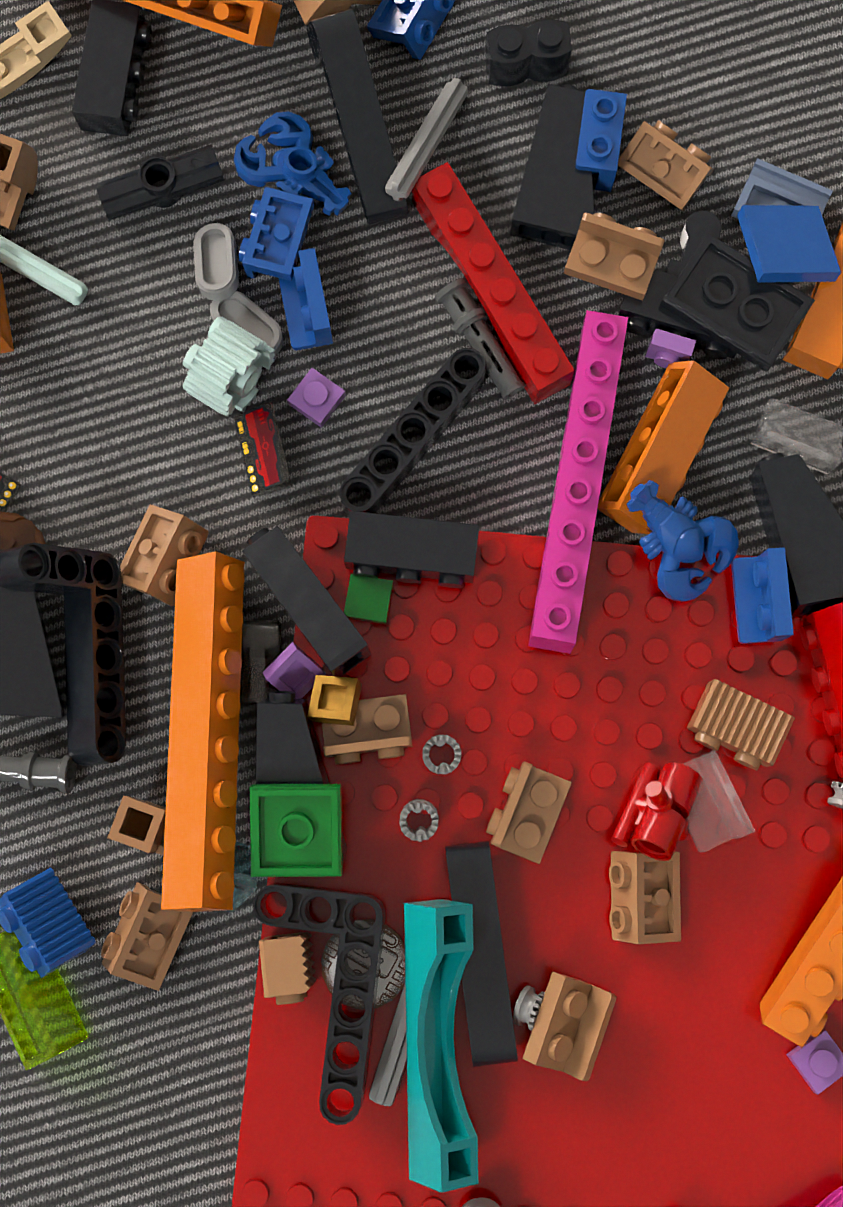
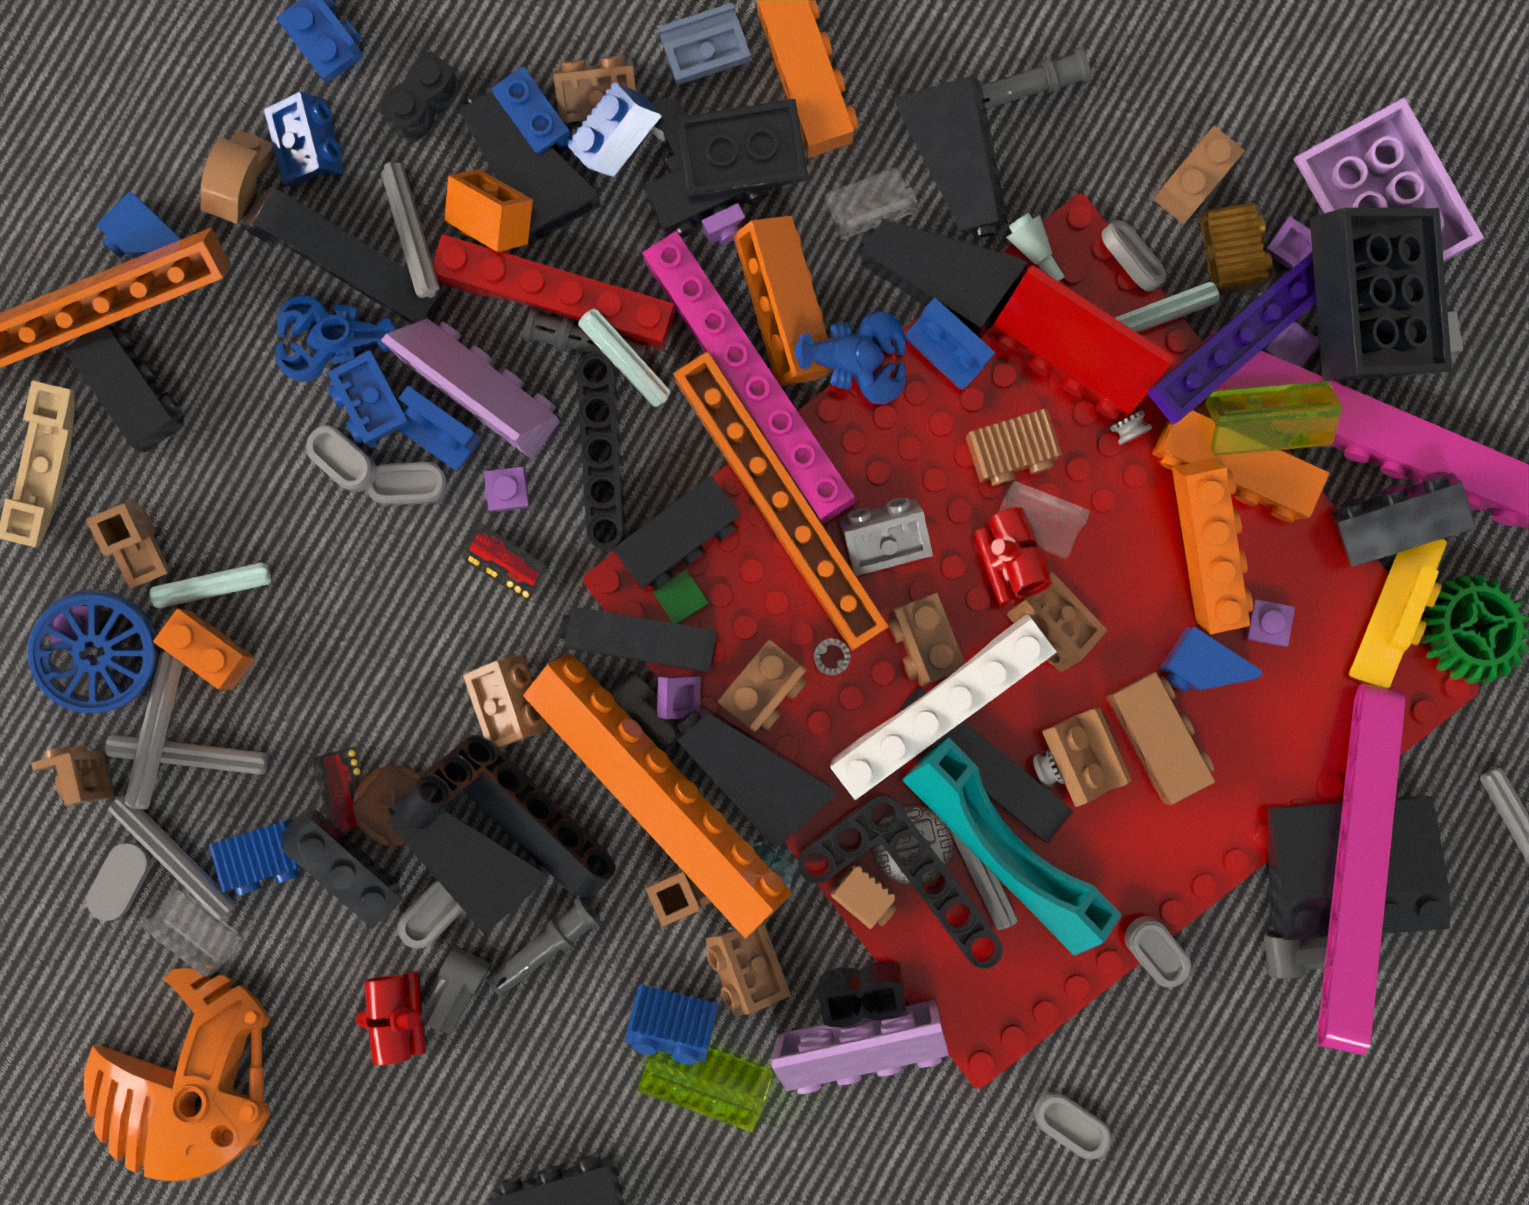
camera: 45 degrees left, 5 degrees up
(135, 189) = (233, 463): black piece -> none
(171, 1084) = (828, 1054): none -> lavender slope
(219, 1049) = (869, 993): none -> black brick
(226, 367) = (426, 528): light aqua brick -> none
(296, 830) = (784, 800): green plate -> none
(334, 700) = (726, 689): pearl gold plate -> none
(366, 293) = (474, 384): none -> lavender slope
(421, 833) = (867, 722): light grey bush -> none
(491, 876) = (943, 708): none -> white arch
(498, 377) = (624, 357): none -> light aqua axle
(499, 176) = (488, 210): none -> orange brick
(513, 596) = (779, 501): none -> orange brick
(572, 700) = (885, 536): none -> light grey bracket
(614, 255) = (625, 195): medium nougat bracket -> none
(644, 1071) = (1161, 738): none -> medium nougat brick
(654, 198) = (614, 129): none -> brick
(735, 1042) = (1203, 663): none -> blue slope
(788, 243) = (739, 73): blue tile -> none

